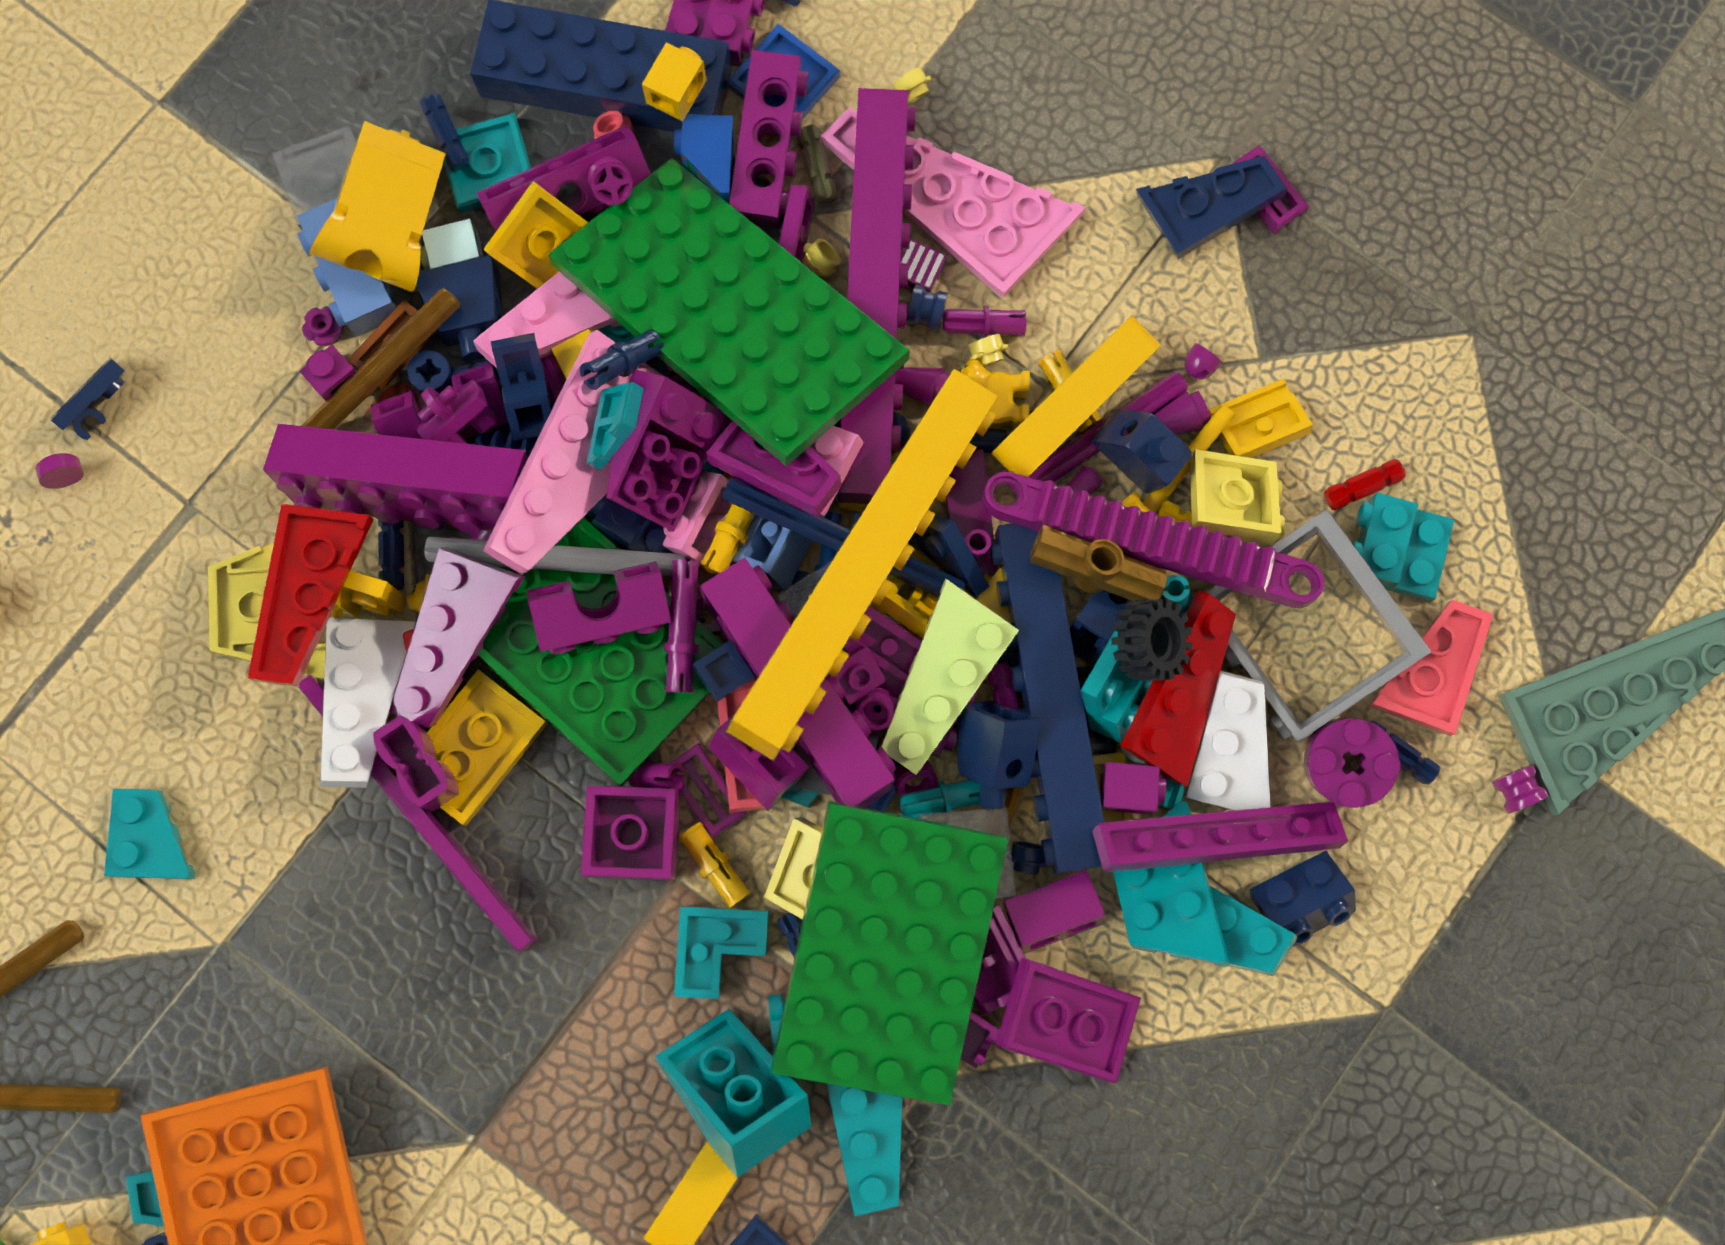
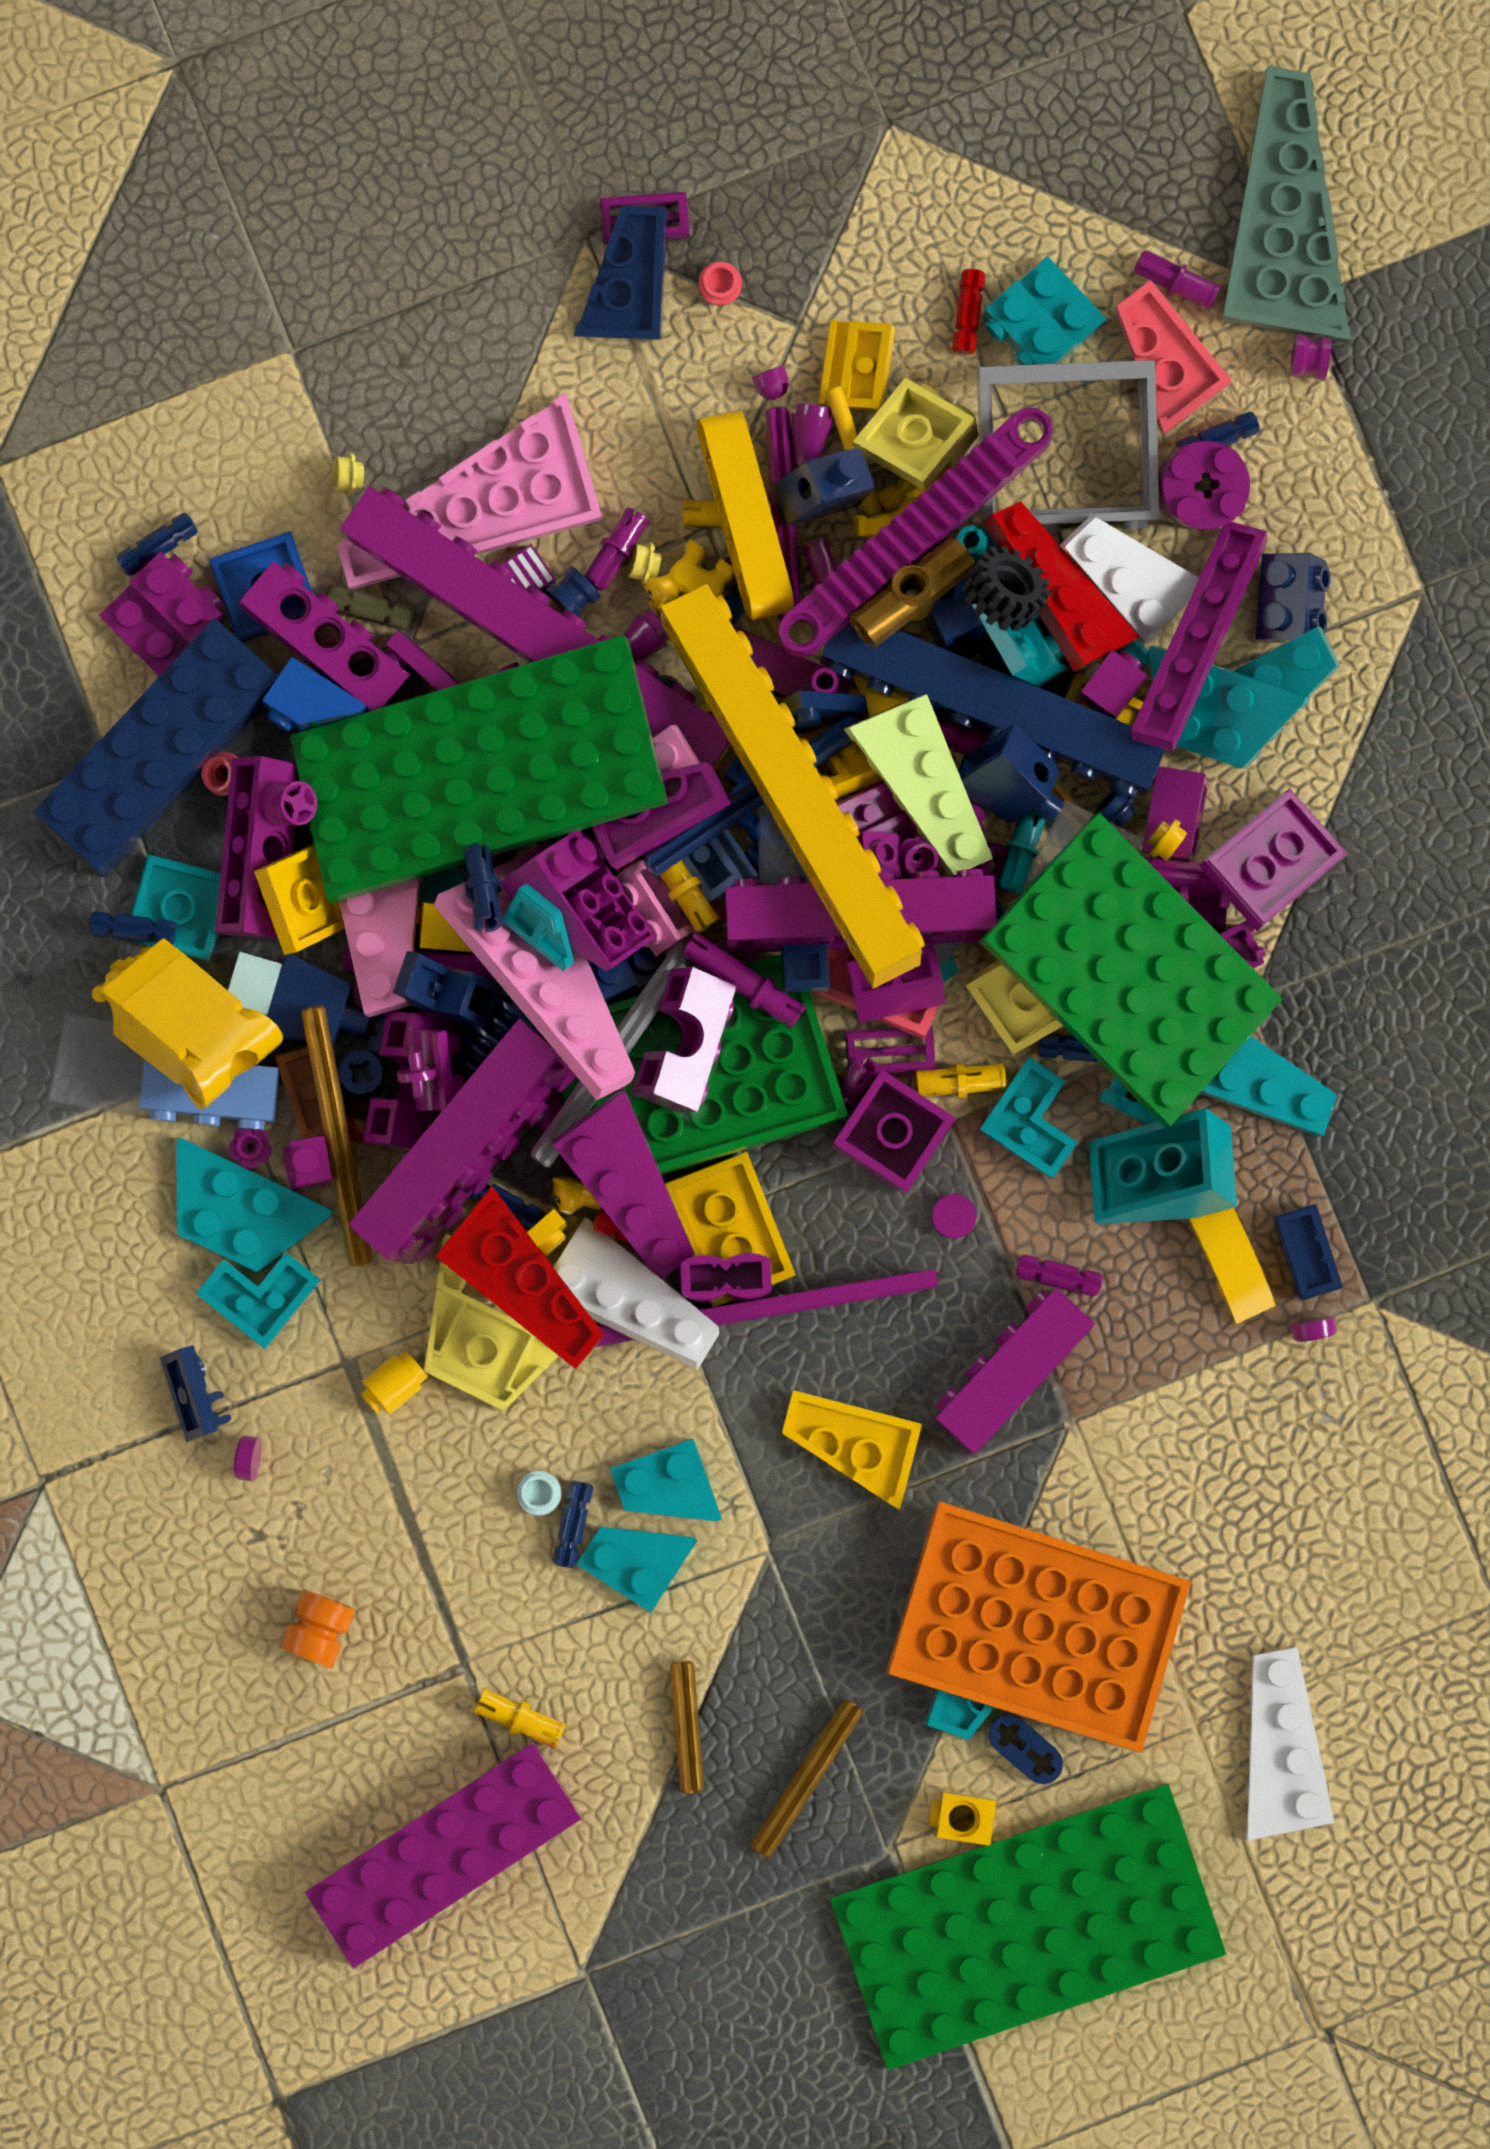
camera: 70 degrees left, 5 degrees up
(147, 766) = (572, 1524): none -> dark blue axle
(160, 722) = (539, 1493): none -> light aqua plate
(185, 548) = (393, 1383): none -> yellow brick
(191, 408) = (264, 1308): none -> teal plate
(226, 826) = (667, 1484): none -> teal wing
(266, 347) = (238, 1209): none -> teal wing
(350, 964) = (857, 1442): none -> yellow wing
(484, 1063) = (1013, 1371): none -> magenta brick
(594, 930) = (954, 1216): none -> magenta tile
(595, 1053) = (1059, 1275): none -> magenta axle
(674, 81) = (235, 687): yellow brick -> none
(821, 257) = (465, 659): light yellow plate -> none
(1025, 915) = (1166, 839): none -> yellow plate
(1254, 276) = (720, 283): none -> coral plate
(1507, 638) = (1176, 279): none -> magenta axle

